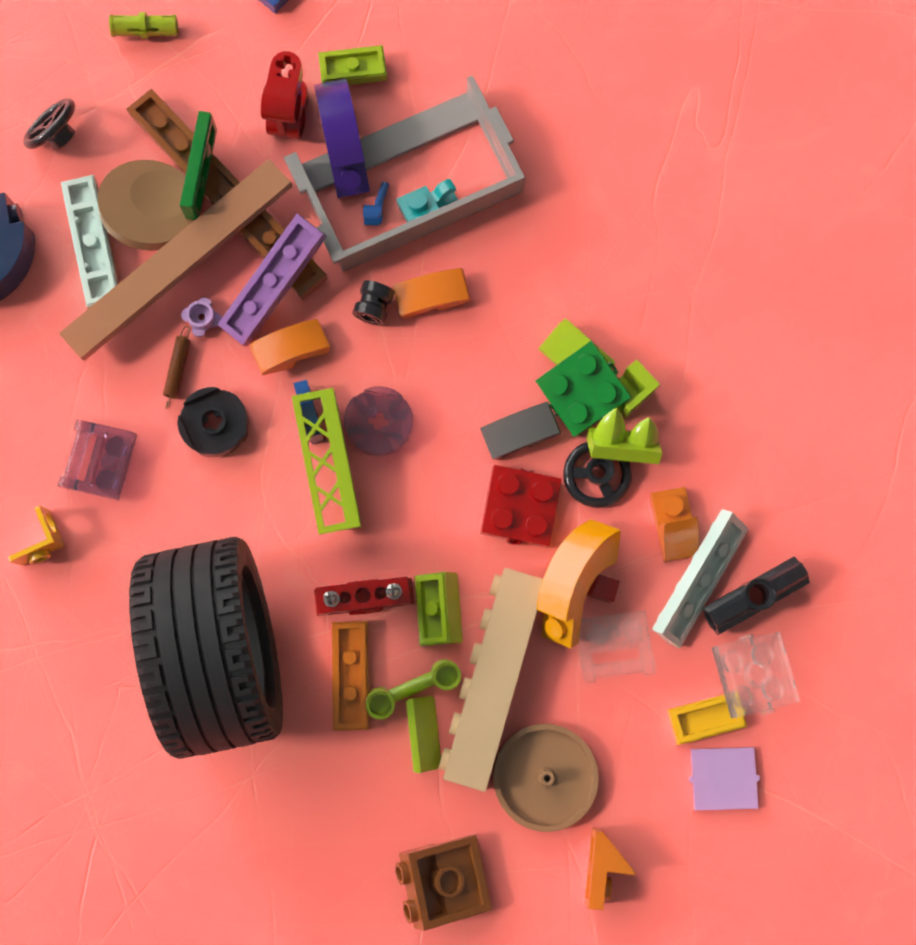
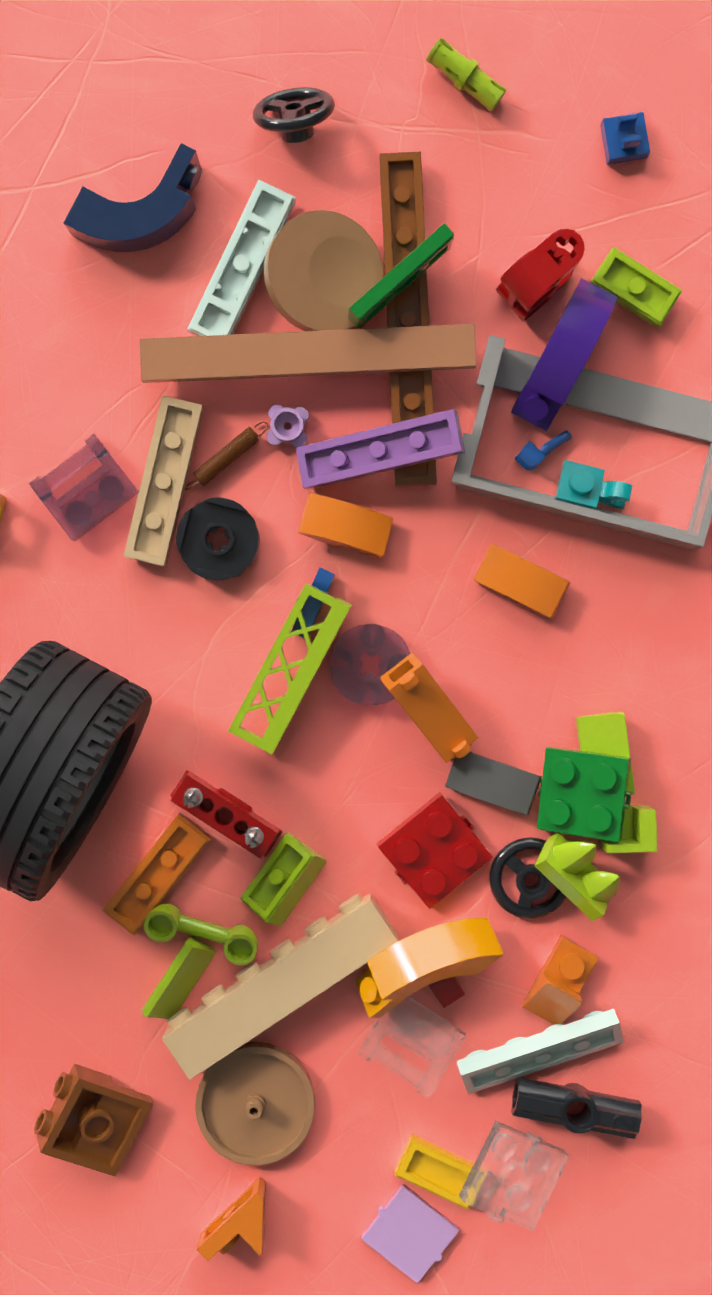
camera: 45 degrees right, 10 degrees up
(147, 414) = (164, 481): none -> tan plate
(373, 303) = (458, 547): black wheel -> none
(439, 413) = (430, 708): none -> orange brick

